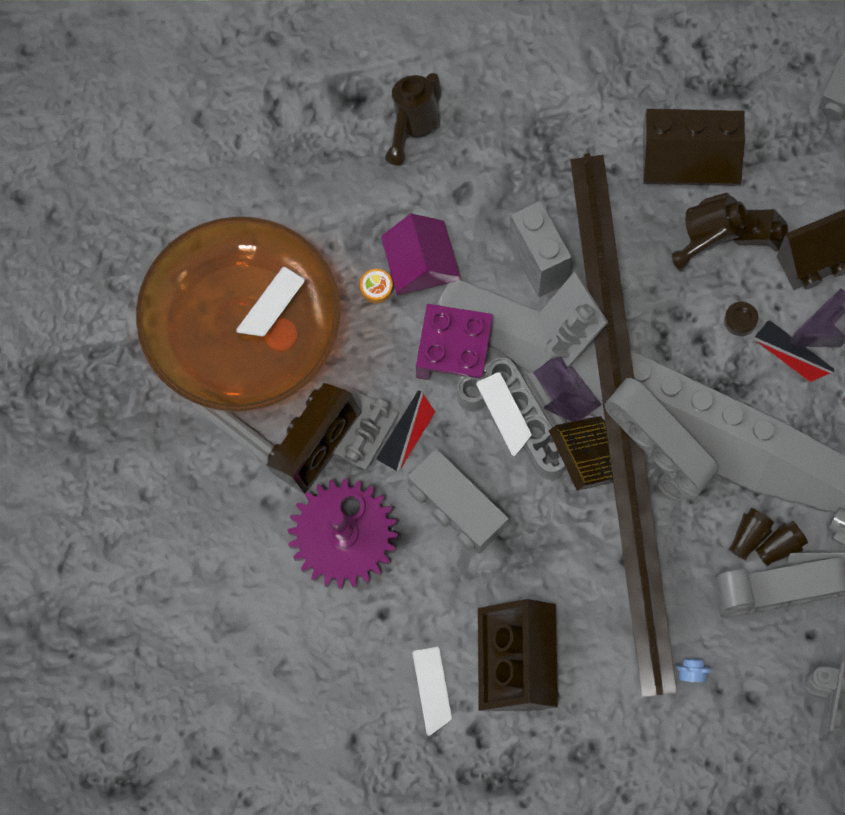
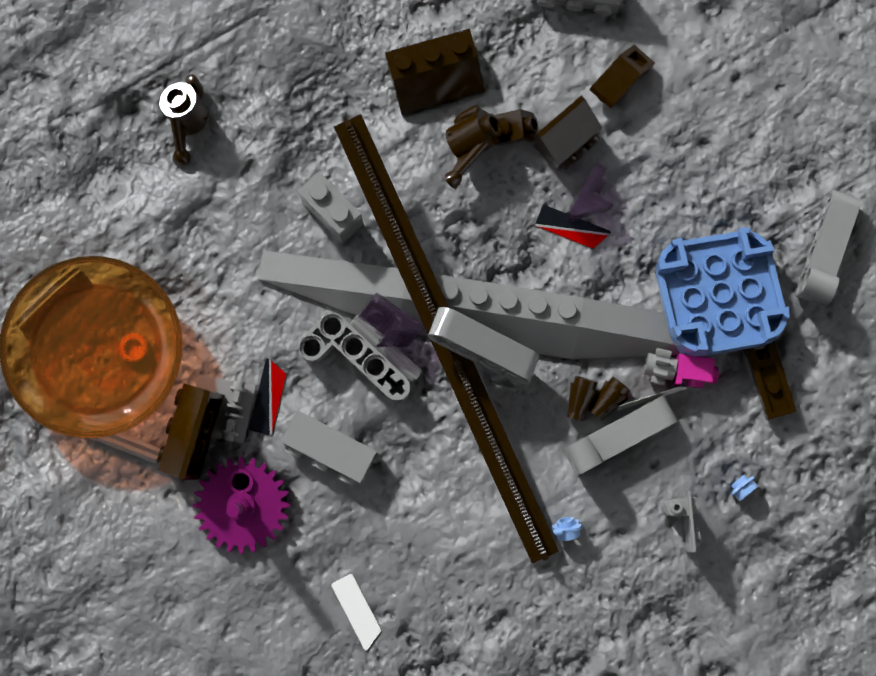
camera: 20 degrees left, 10 degrees up
(271, 303) = (116, 327): white sticker -> none
(376, 285) = (201, 279): tile -> none
(419, 254) = (230, 240): magenta slope -> none
(453, 342) = (283, 312): magenta bracket -> none
(504, 411) = (345, 360): white sticker -> none
(517, 656) = (419, 564): dark brown slope -> none
(571, 320) = (377, 266): light grey hinge -> none
(584, 451) = (422, 373): dark brown tile -> none
(741, 318) = (519, 211): dark brown tile -> none

